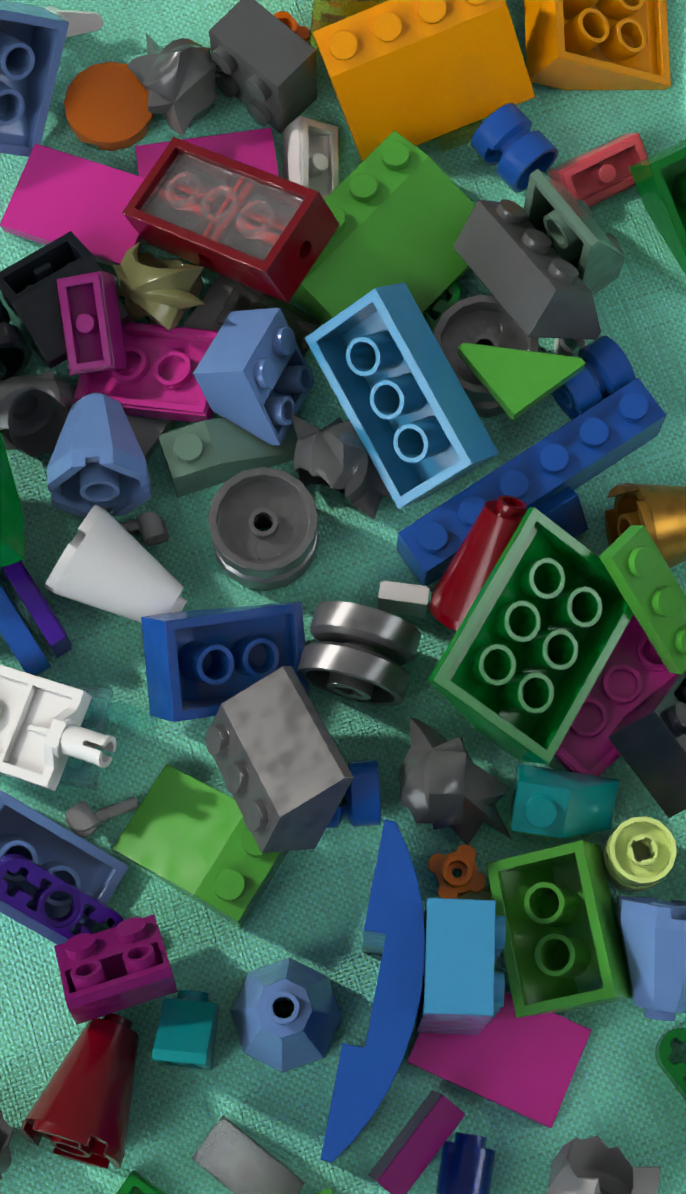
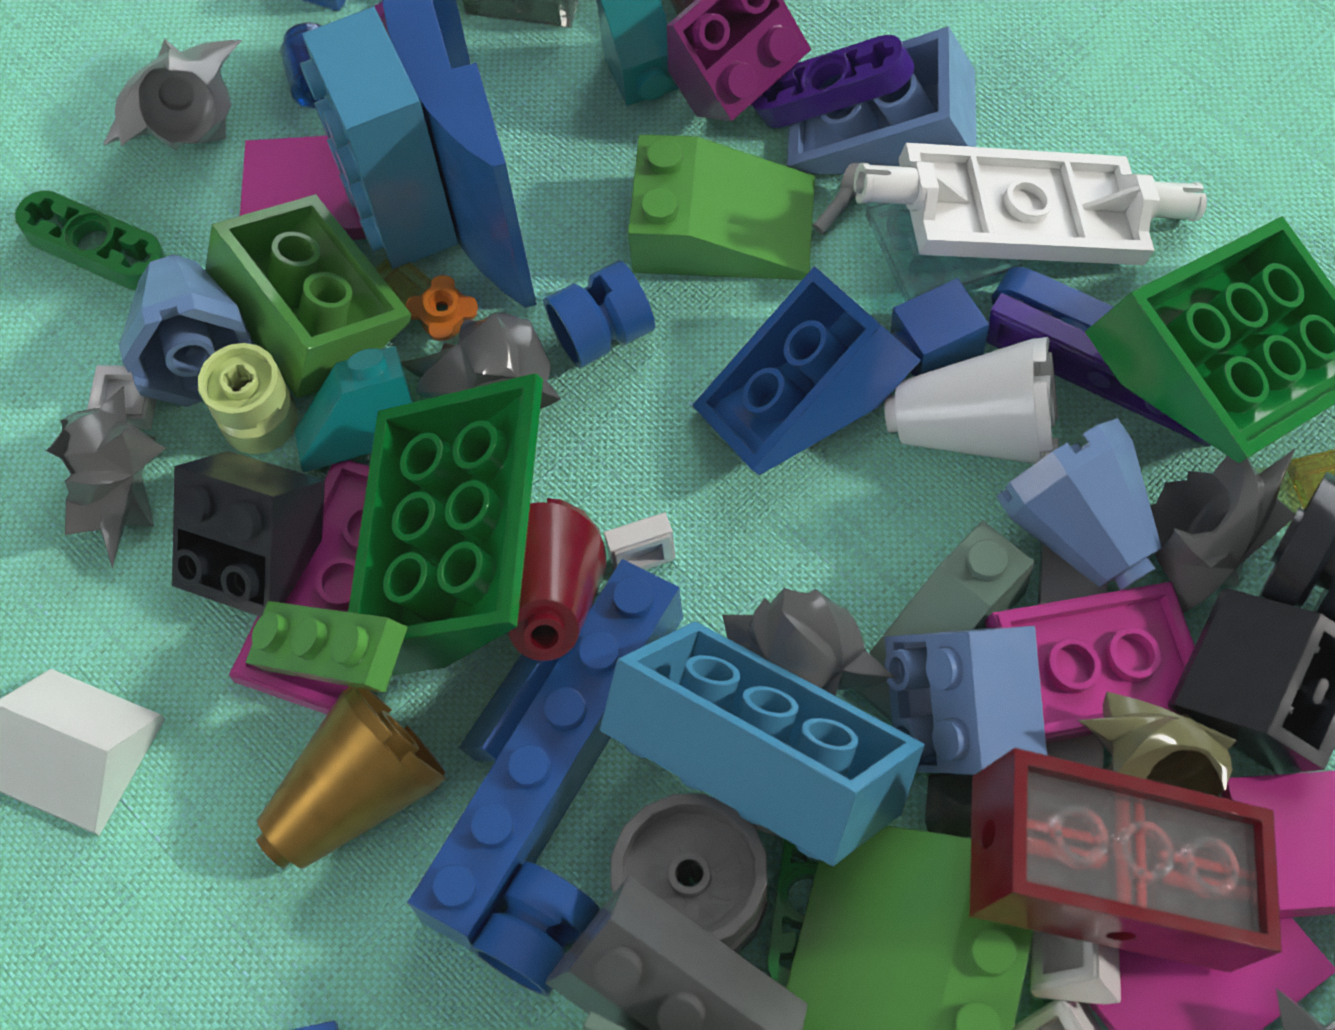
camera: 160 degrees right, 10 degrees down
(91, 323) = (1206, 656): magenta slope -> none
(107, 655) = (940, 327): none -> blue brick
(150, 526) = (980, 493): light grey hand -> none
(257, 501) = (845, 529): flat silver wheel -> none
(279, 762) = (681, 271): flat silver slope -> none
(291, 1040) = (553, 107): medium blue cone -> none
(359, 653) = (653, 438): flat silver wheel -> none
(518, 376) = (620, 833): bright green tile -> none

